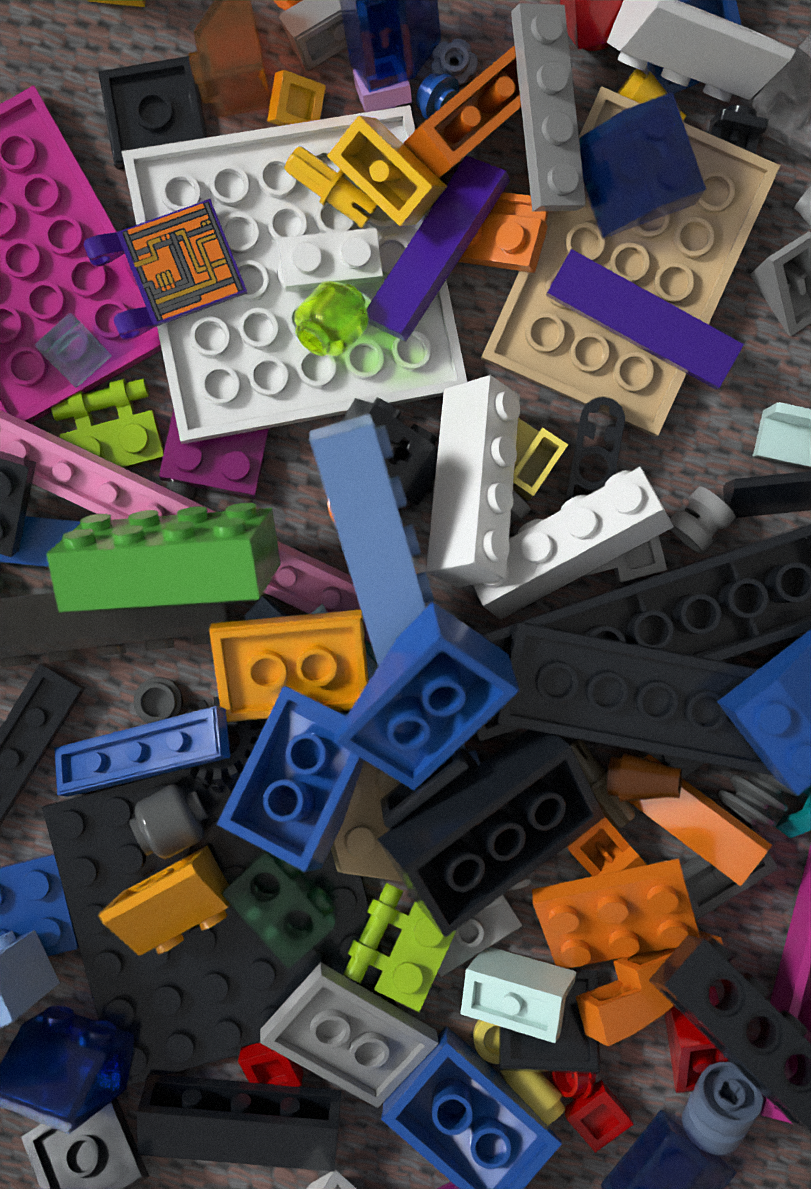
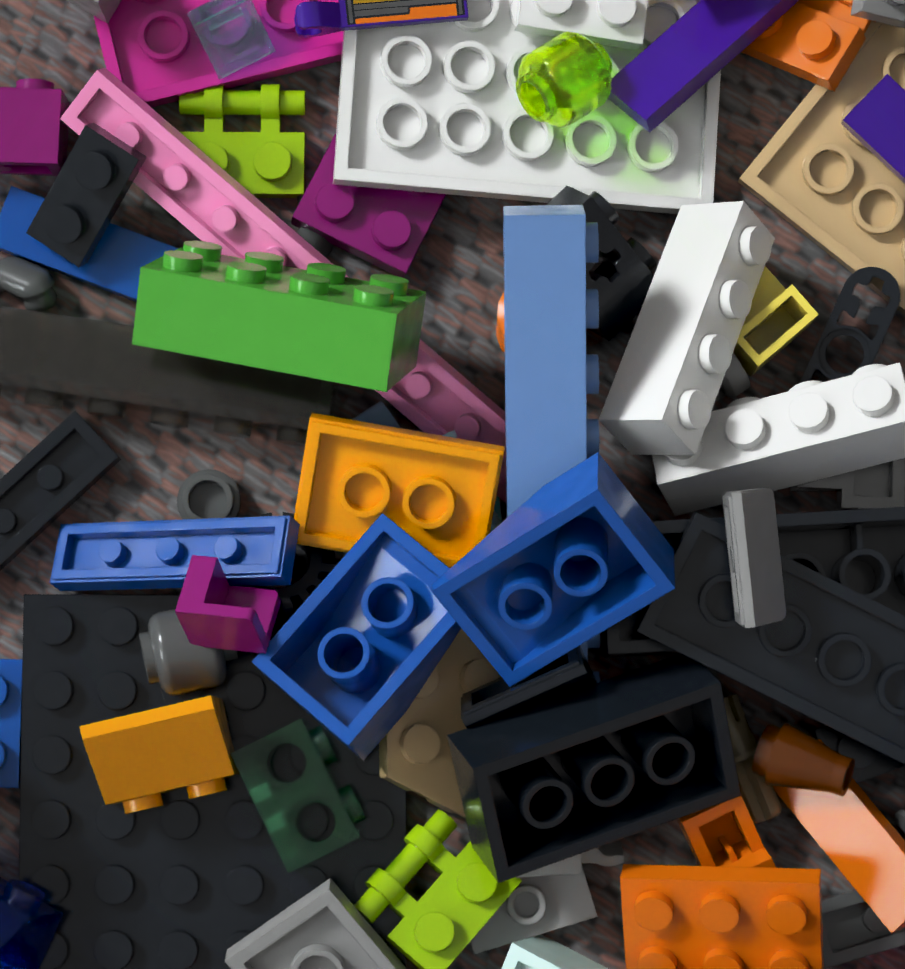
camera: 15 degrees right, 5 degrees down
(185, 793) = (224, 614): none -> magenta panel
(571, 646) = (754, 557): none -> light grey slope

